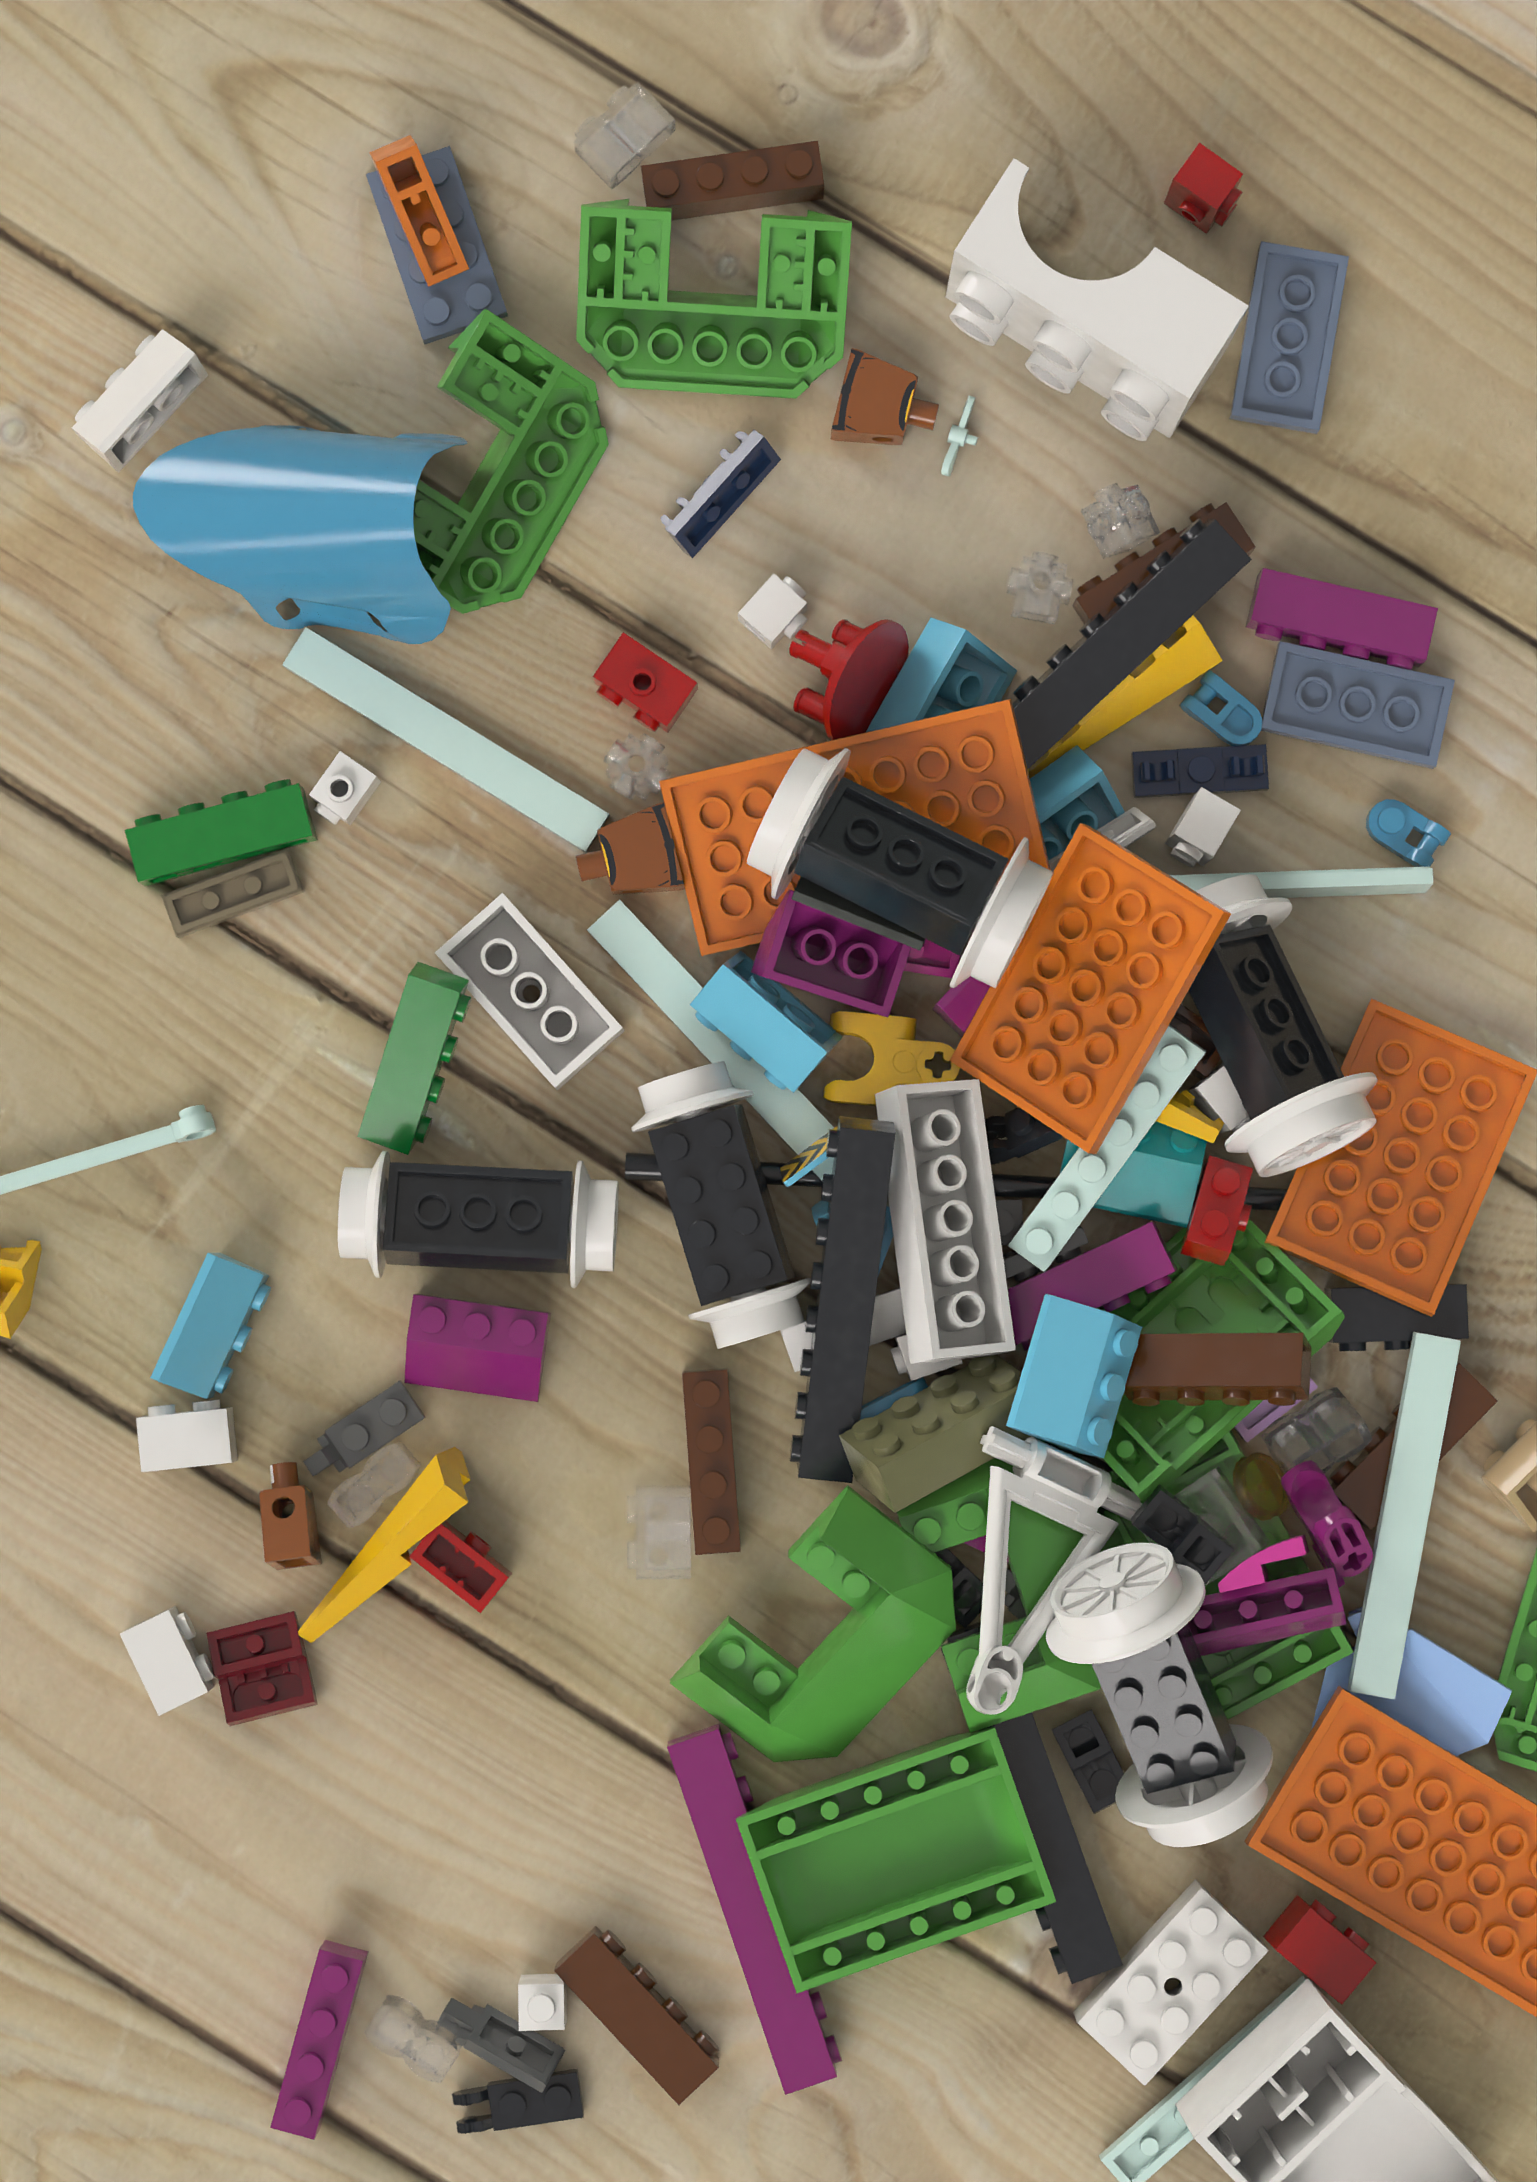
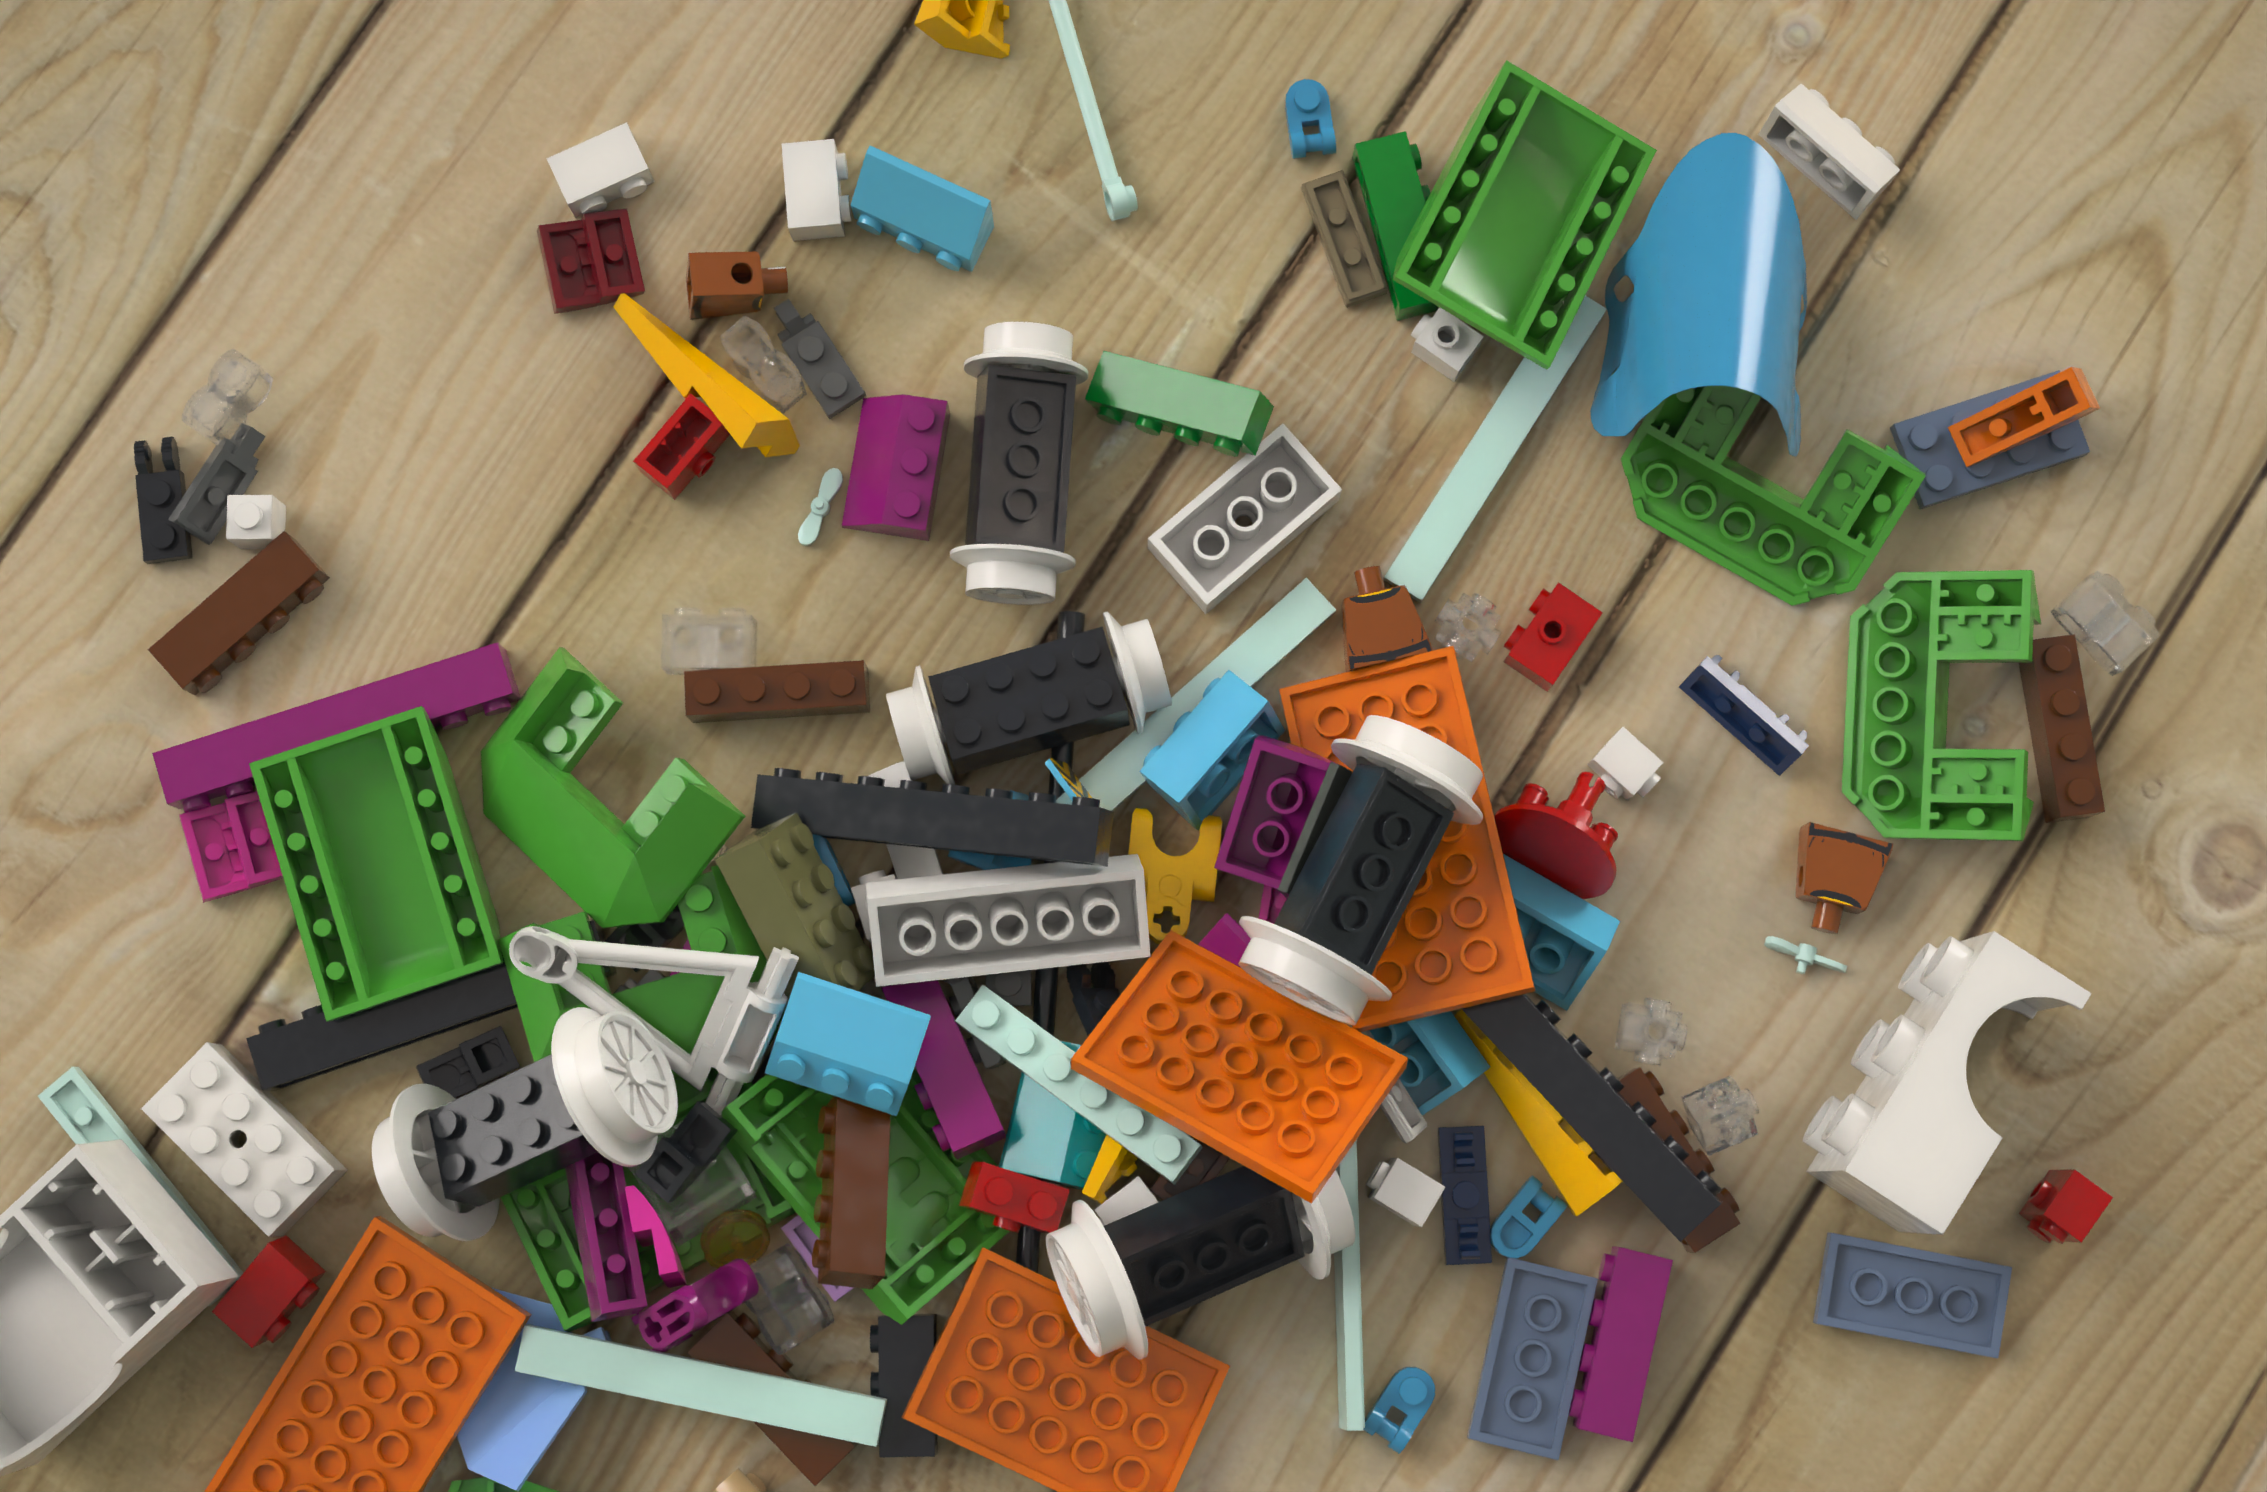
camera: 95 degrees right, 5 degrees down
(92, 932) = (1307, 106): none -> dark azure plate
(216, 710) = (1523, 214): none -> bright green slope
(319, 2039) = (231, 309): magenta brick -> none
(518, 1423) = (820, 506): none -> light aqua piece
(874, 2011) = (230, 847): none -> dark pink slope

